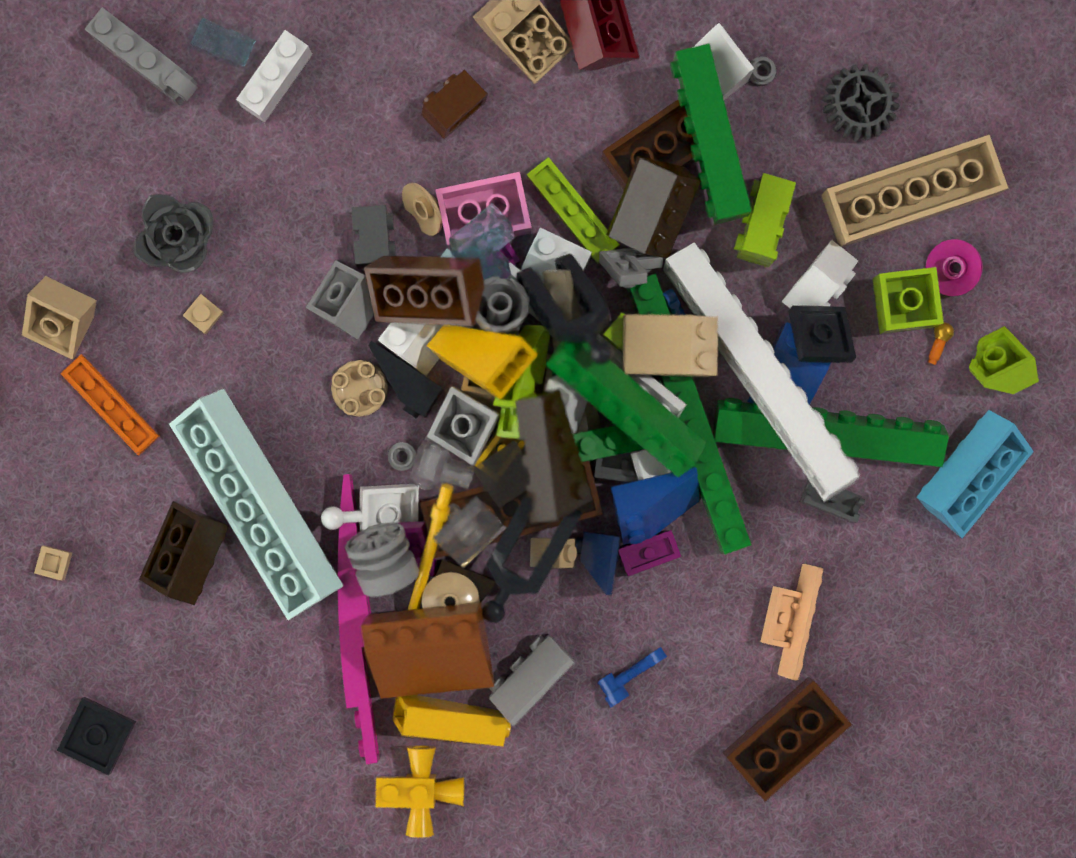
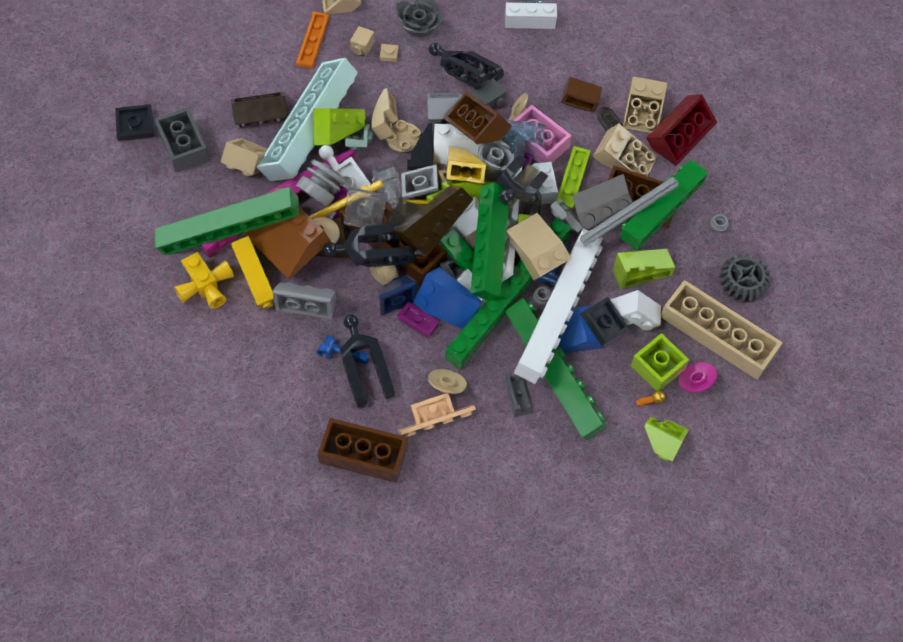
camera: 55 degrees right, 25 degrees down
(53, 562) = (214, 57): tan plate -> none
(163, 341) = (362, 41): none -> tan brick
(173, 692) = (181, 139): none -> dark grey brick
(253, 619) = (243, 156): none -> tan slope
(295, 474) = (335, 124): none -> lime wedge
(303, 211) = (461, 60): none -> black piece
(311, 393) = (384, 115): none -> tan slope
(331, 454) = (359, 140): none -> sand green bracket
(367, 719) = (227, 221): none -> brick
(515, 94) = (609, 120): none -> clear smoke plate
(582, 114) = (625, 151): none -> tan slope
(639, 653) = (360, 342): none -> black piece
(701, 192) = (629, 211): none -> light grey axle
(723, 380) = (541, 291): none -> light grey plate
(730, 63) = (704, 198): white slope -> none
(755, 565) = (447, 381): none -> tan dish
(975, 473) = (593, 463): medium azure slope -> none

